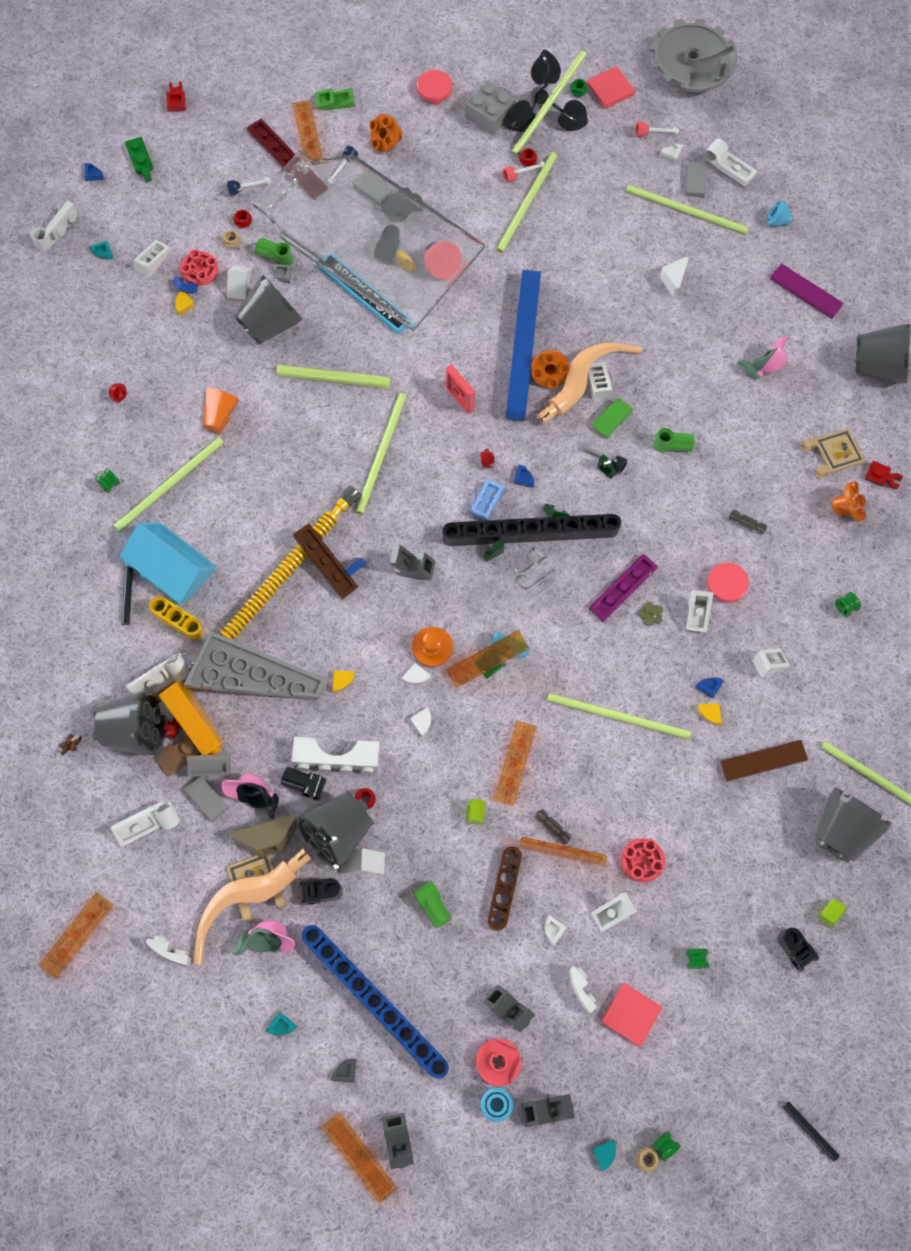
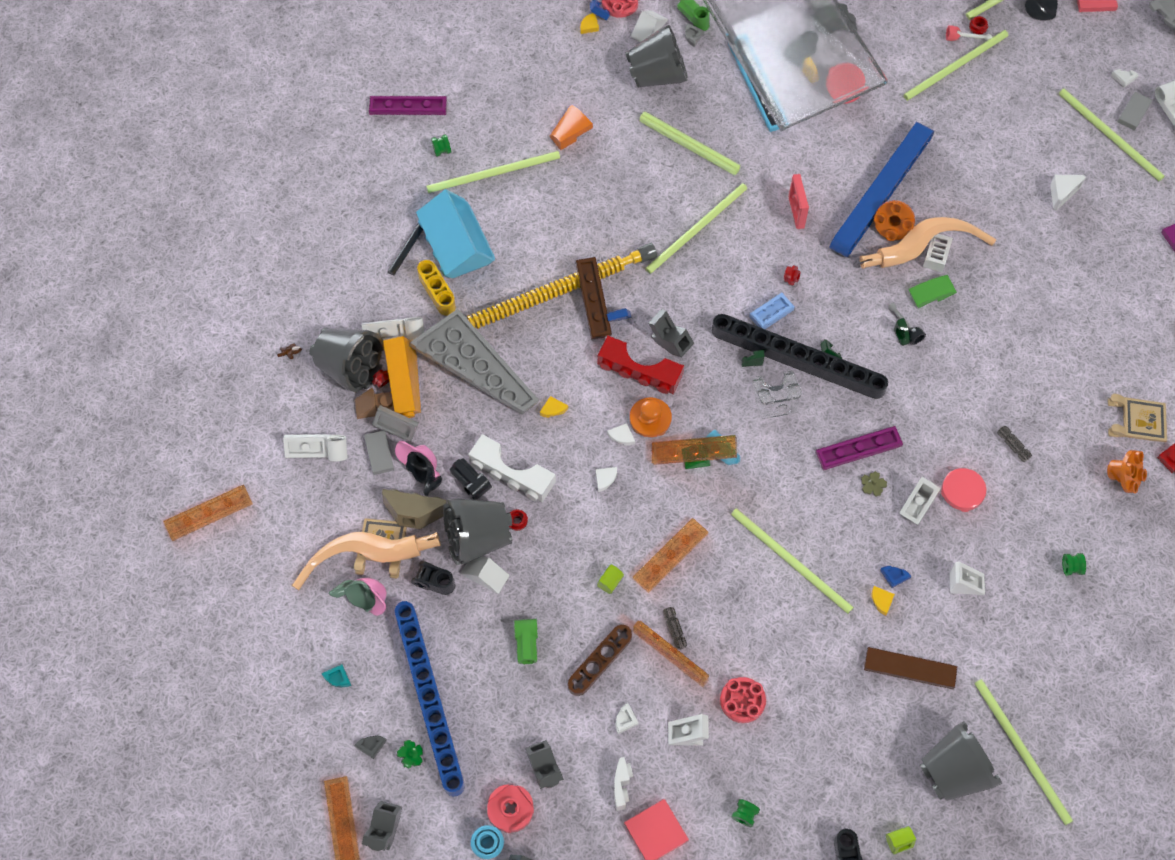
camera: 30 degrees right, 5 degrees down
(53, 455) = (408, 105): none -> magenta tile
(117, 392) = (490, 75): red plate -> none
(164, 948) = (275, 562): white slope -> none
(374, 606) = (663, 375): none -> red arch
(386, 1061) = (410, 754): none -> green plant
(524, 477) = (818, 307): blue tile -> none
(642, 129) = (1106, 44): hinge -> none
(673, 440) = (980, 337): bright green piece -> none
(769, 363) = (1114, 307): hair -> none

